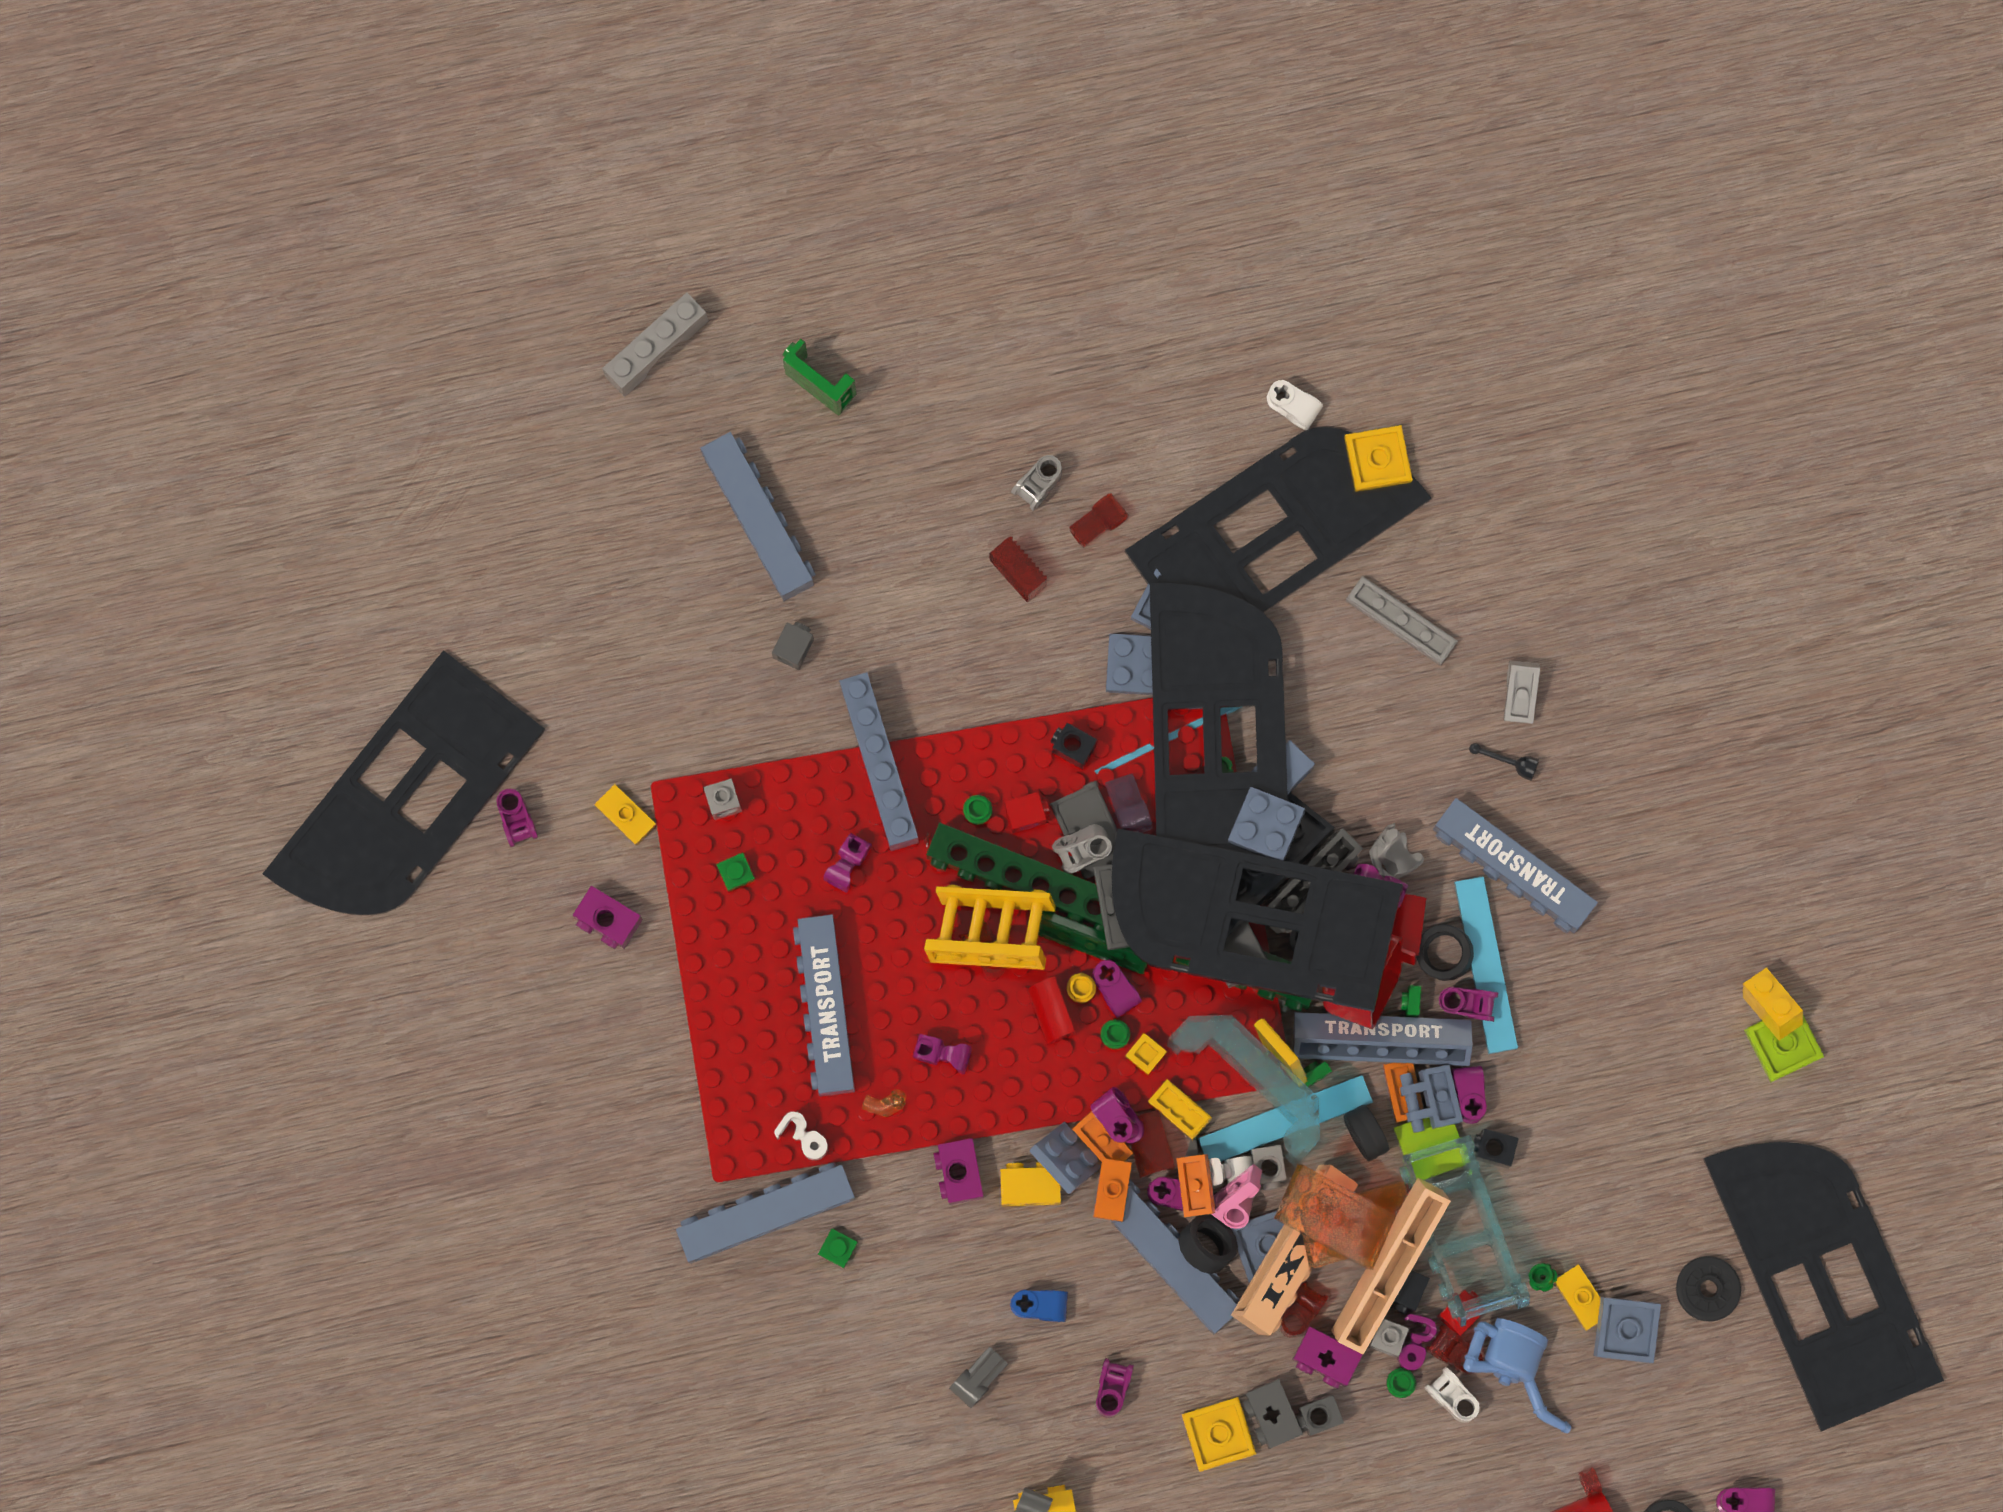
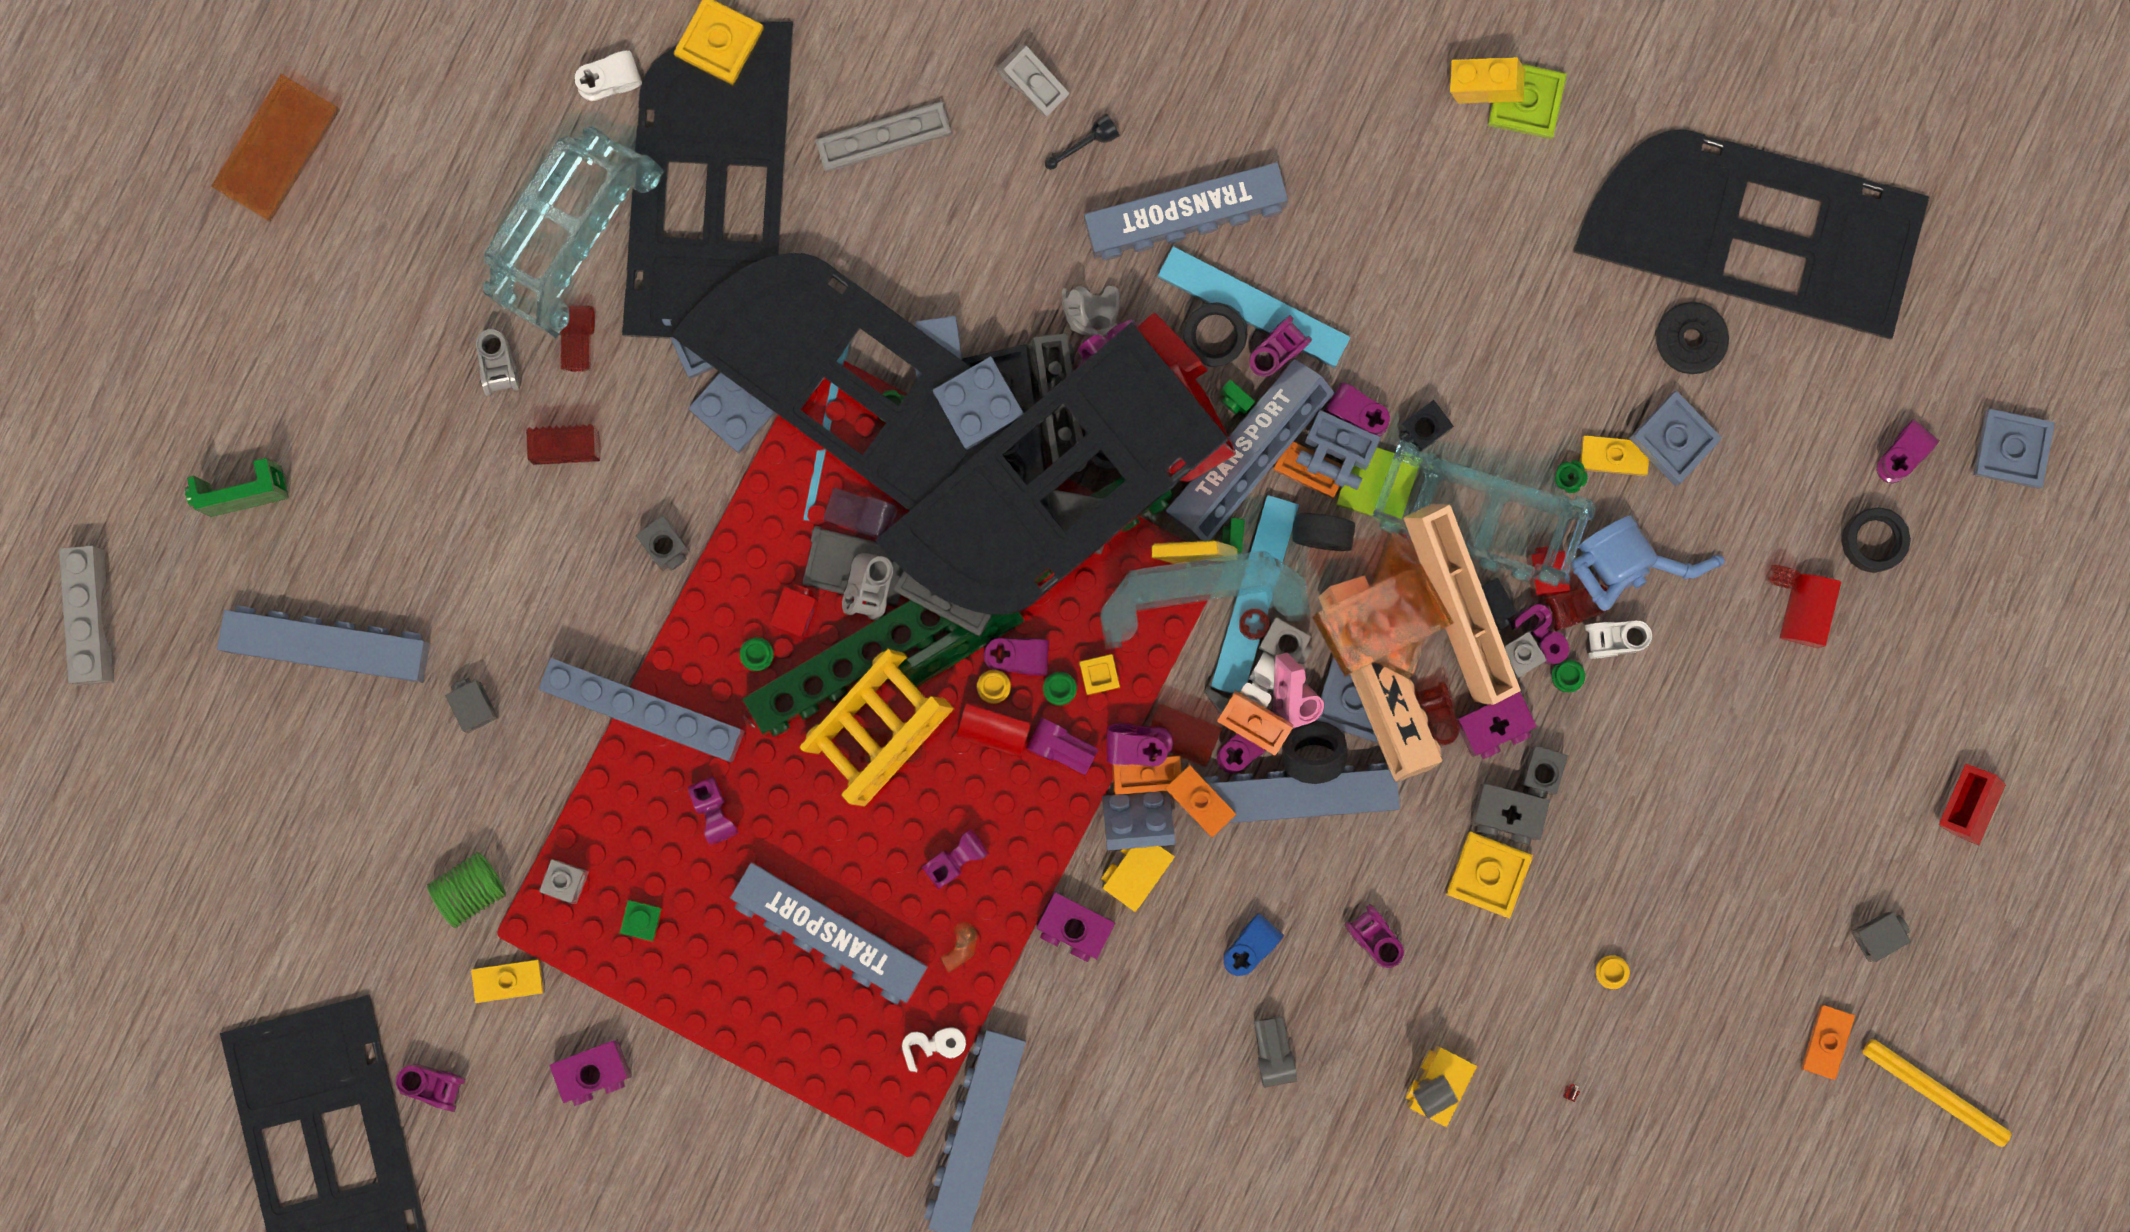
camera: 55 degrees left, 5 degrees up
(684, 741) = (484, 874): none -> bright green piece
(837, 1248) = (1058, 1091): green plate -> none
(1008, 677) = (653, 533): none -> dark grey brick
(1068, 222) = (275, 148): none -> clear orange plate
(1075, 1059) = (1055, 744): none -> magenta piece
(1078, 757) = (780, 525): black brick -> none
(1167, 424) = (537, 203): none -> clear light blue windscreen
(1180, 1109) = (1173, 683): yellow plate -> none
(1256, 1130) = (1263, 619): none -> clear red bush

